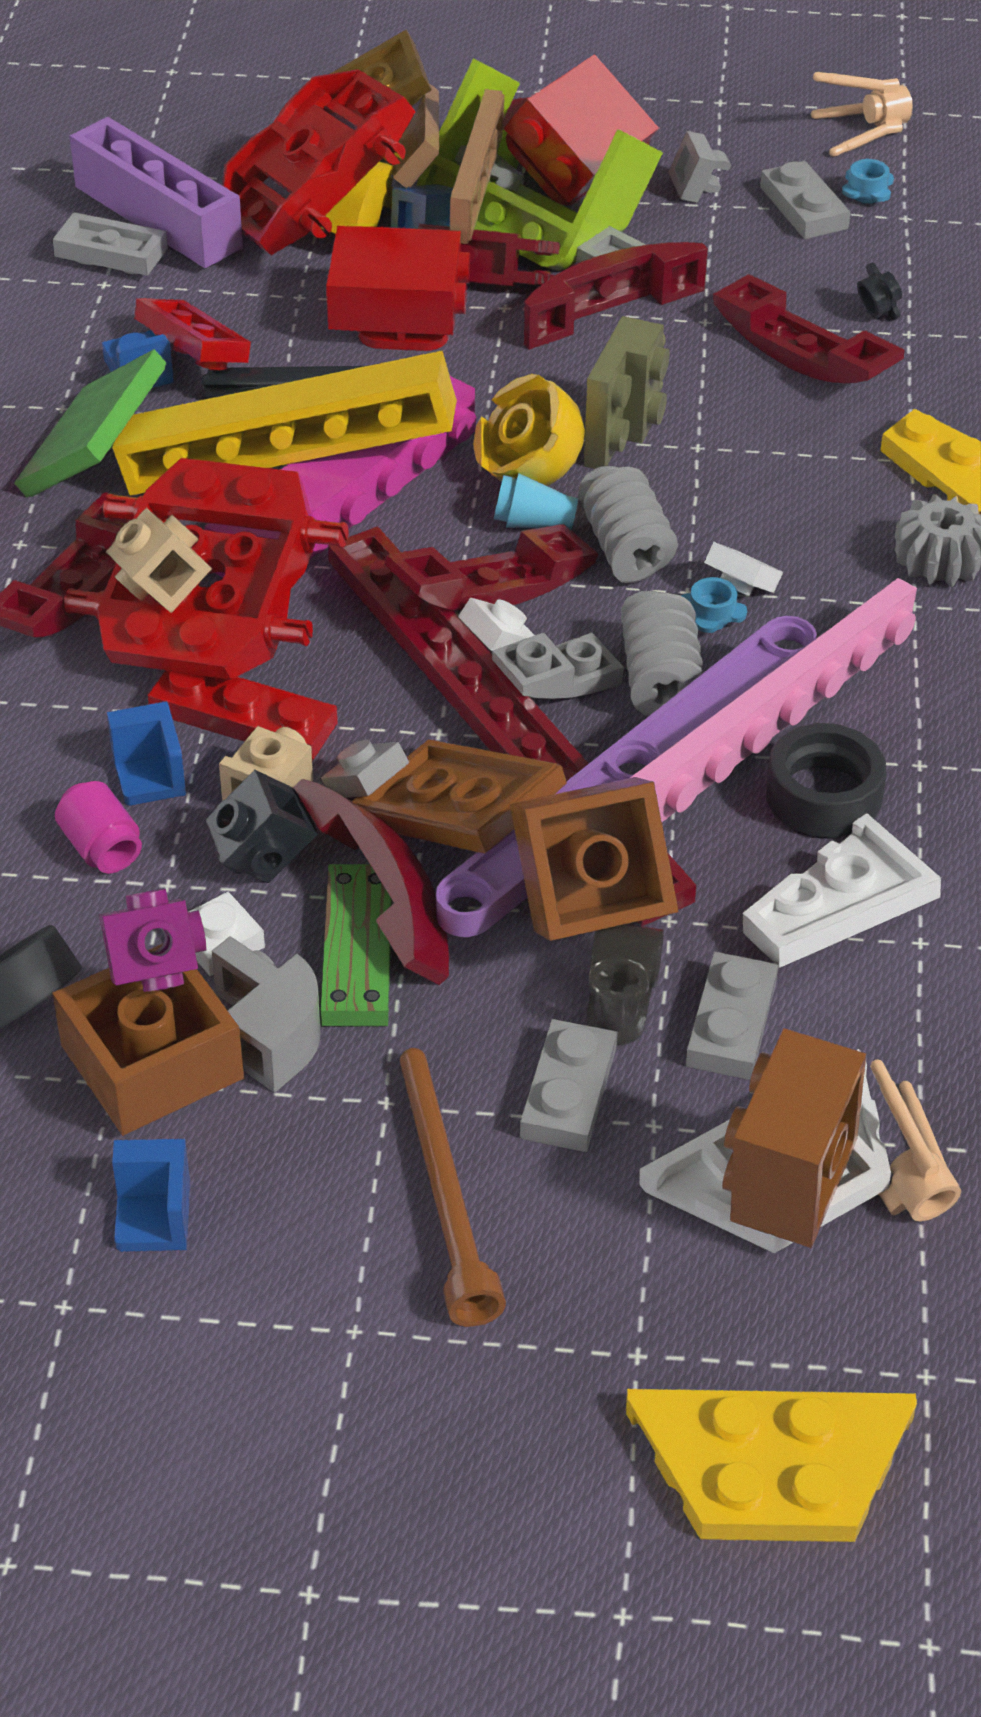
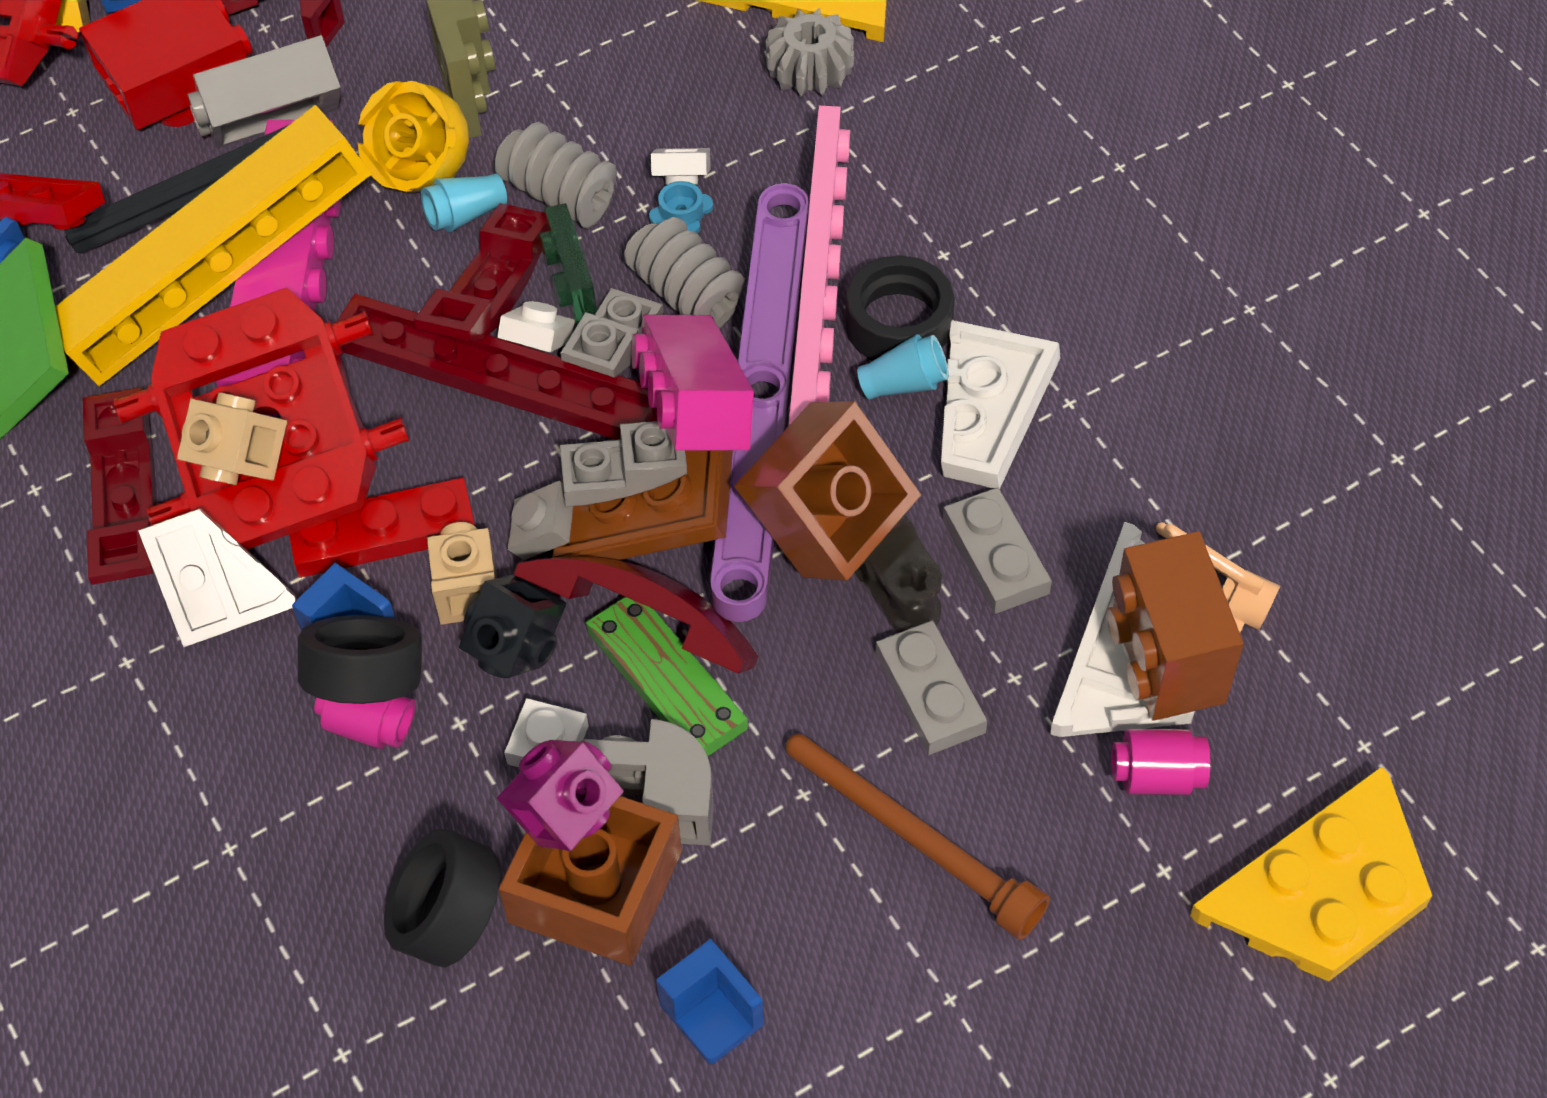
camera: 35 degrees left, 10 degrees up
(69, 661) = (210, 577): none -> wing
(117, 777) = (359, 659): none -> black tyre
(464, 758) = (620, 467): none -> light grey slope
(471, 335) = (274, 85): none -> light grey window
(561, 718) = (693, 382): none -> dark pink brick
(575, 592) = (562, 247): none -> clear green plate
(708, 1259) = (1161, 761): none -> dark pink brick
(786, 825) = (907, 368): none -> medium azure cone

